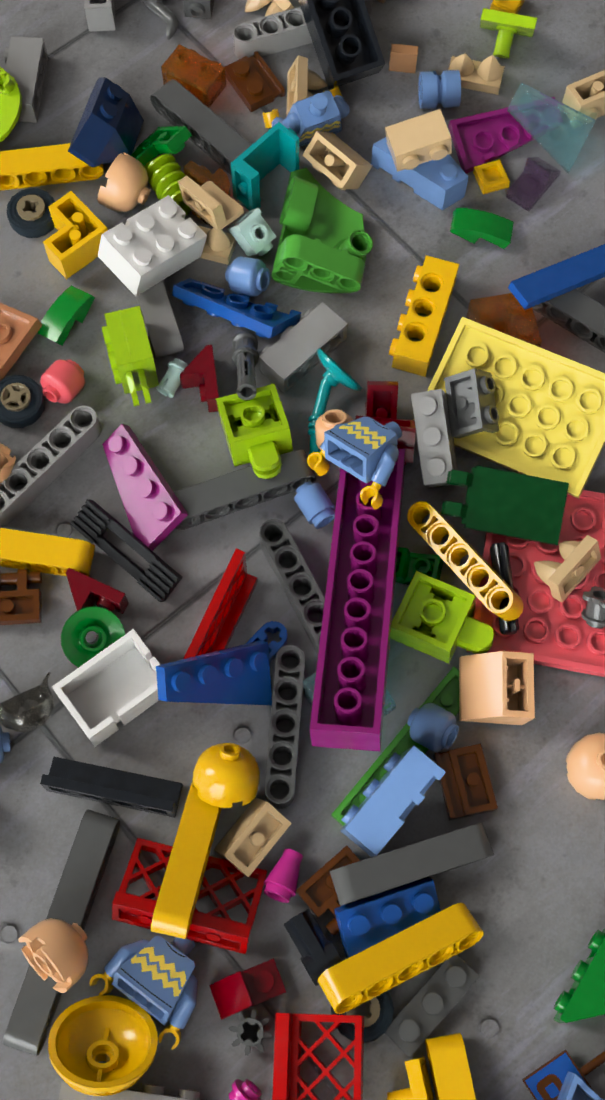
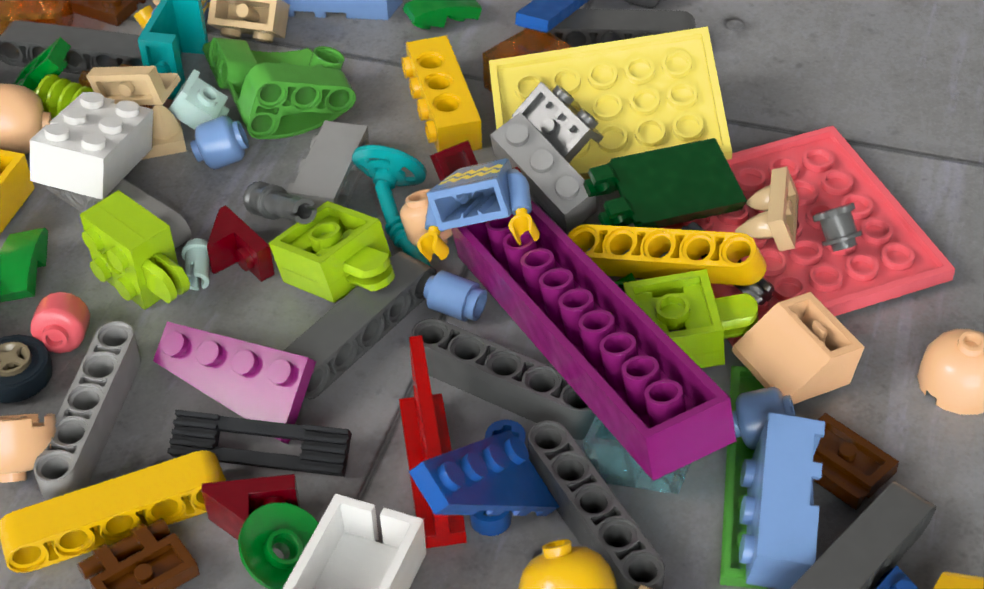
camera: 30 degrees left, 25 degrees down
(236, 308) = (235, 171): blue wing -> none

